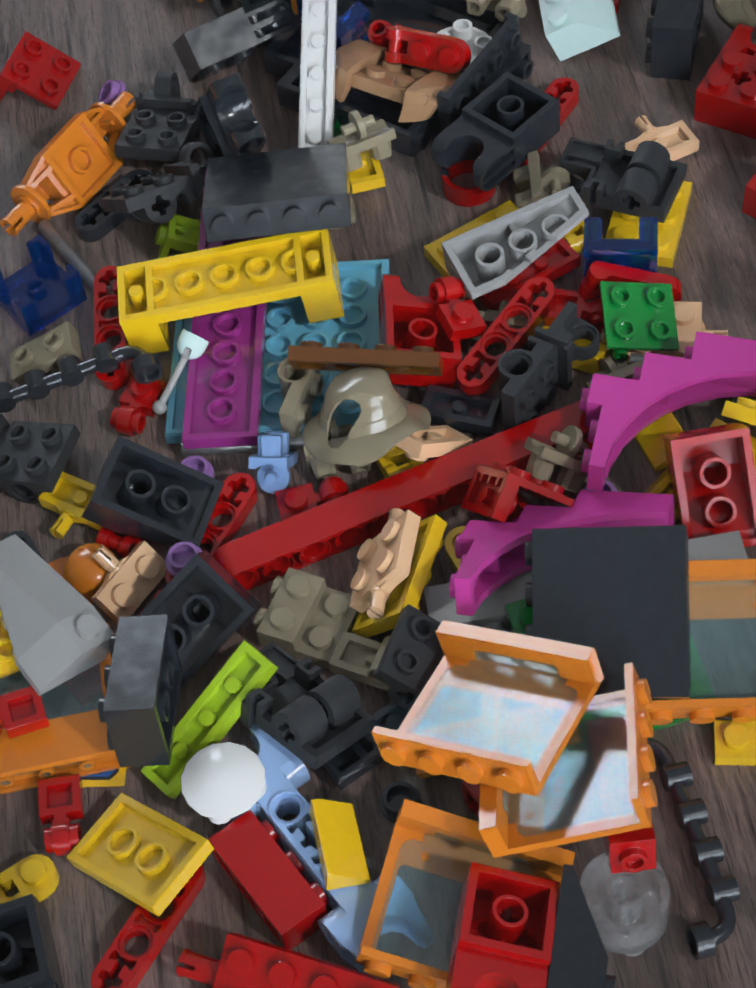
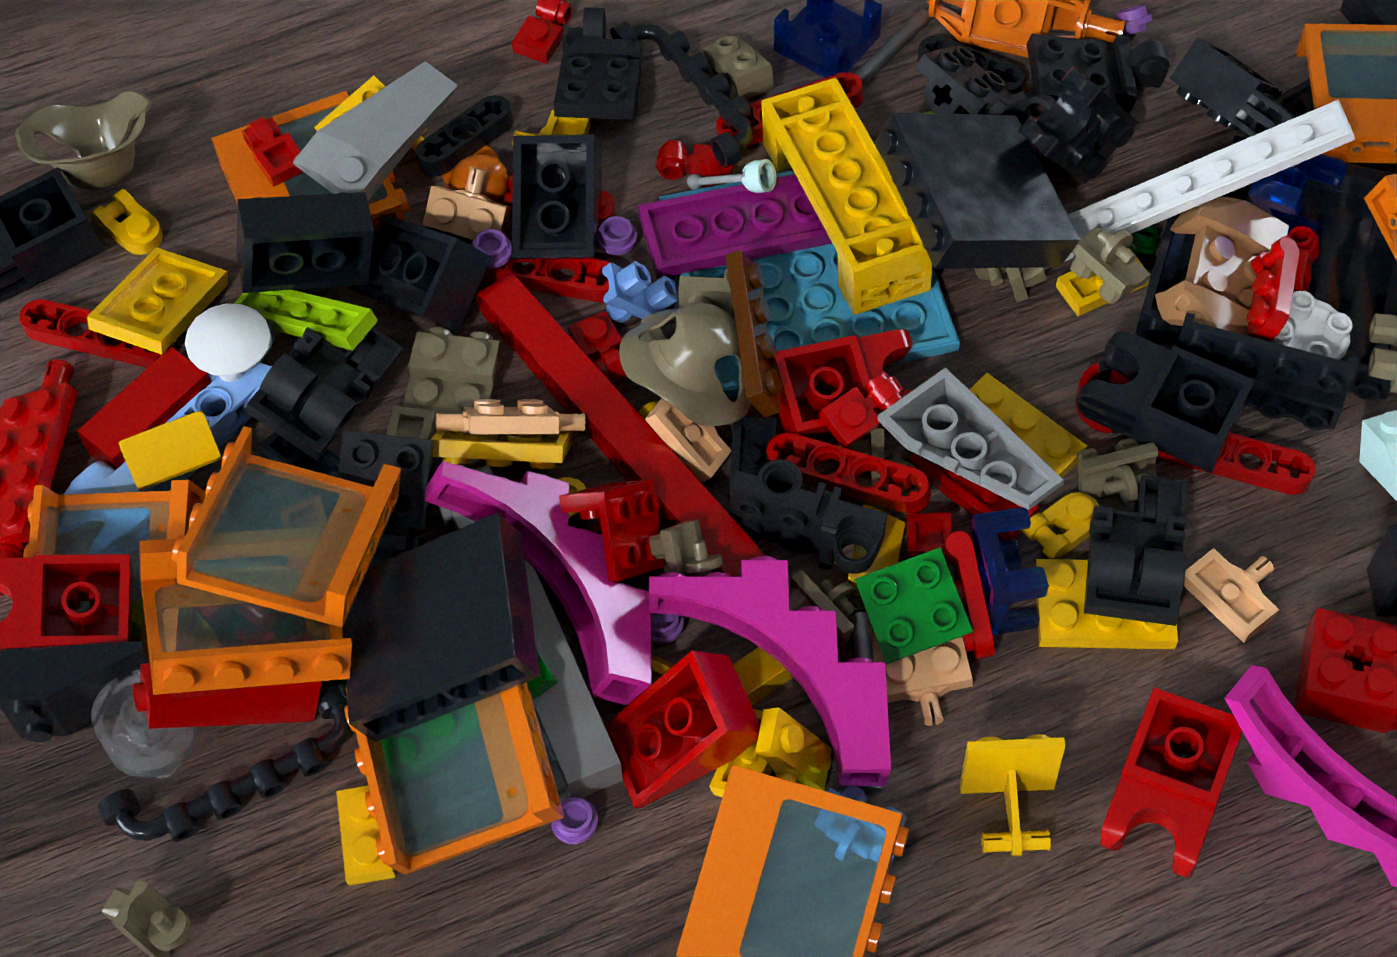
camera: 70 degrees right, 5 degrees up
(59, 803) = (212, 227): red plate -> none

